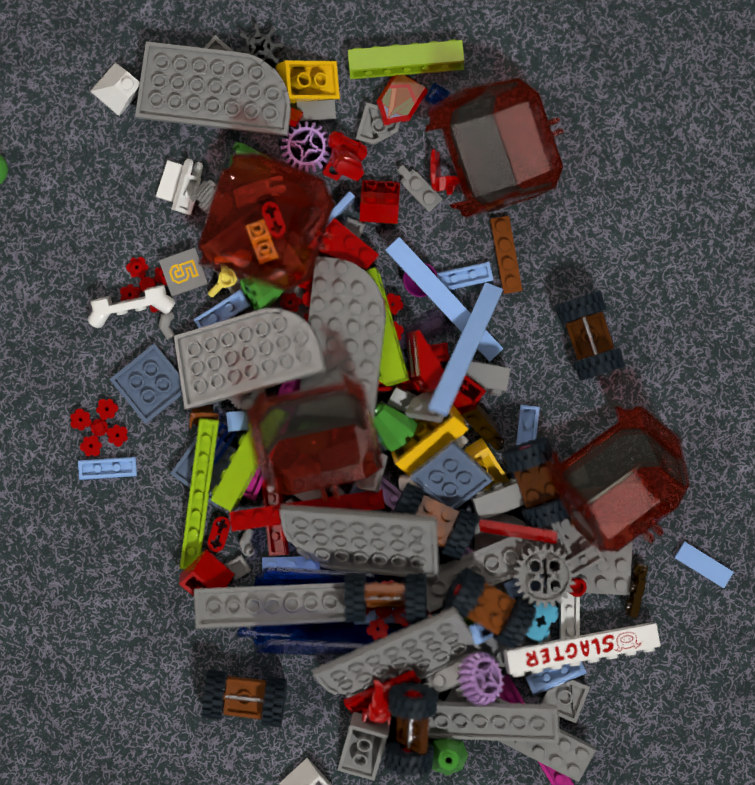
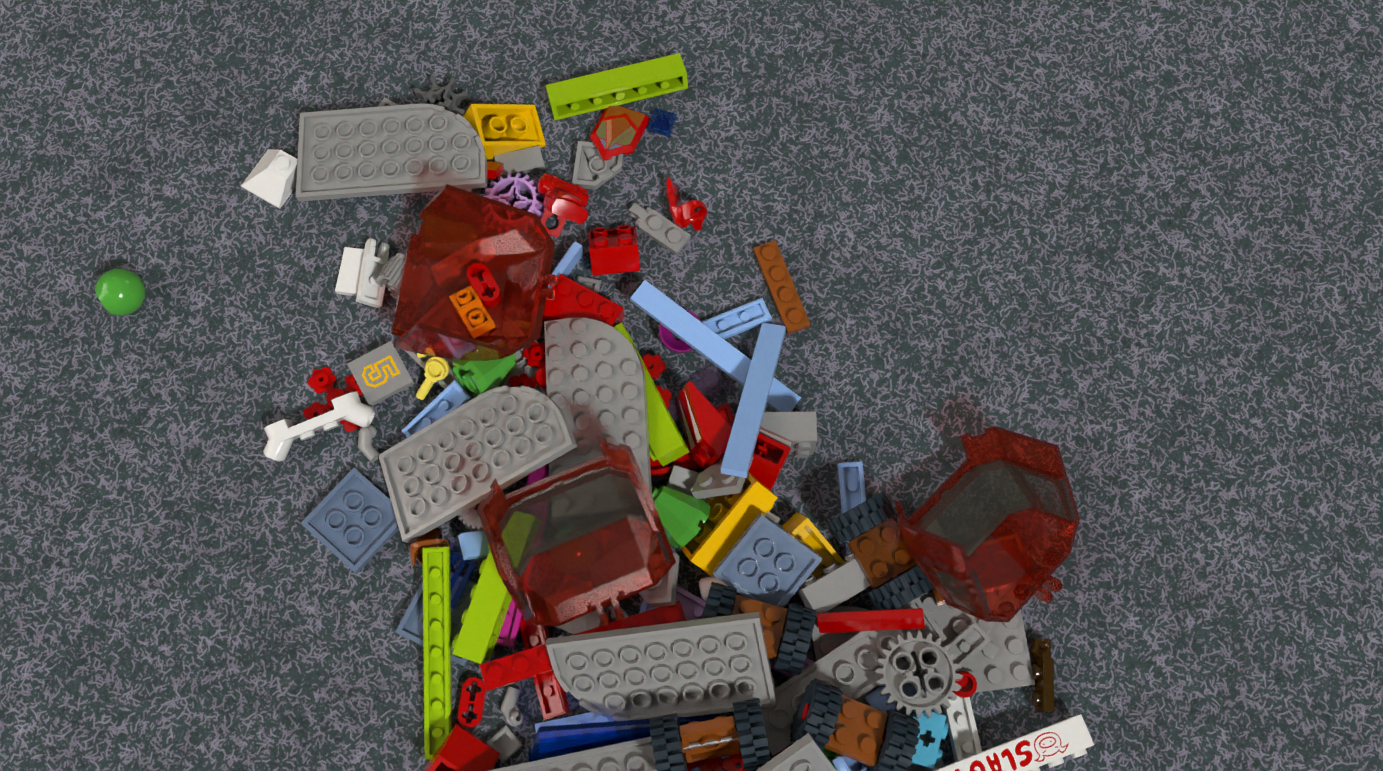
camera: 10 degrees left, 15 degrees down
(99, 427) = (294, 589): red plant -> none
(107, 468) = (311, 641): light blue tile -> none
(484, 426) = (796, 495): dark brown hinge -> none
(498, 144) = (743, 151): clear red windscreen -> none
(590, 335) = (907, 358): plate -> none
(703, 564) = (1121, 626): light blue tile -> none

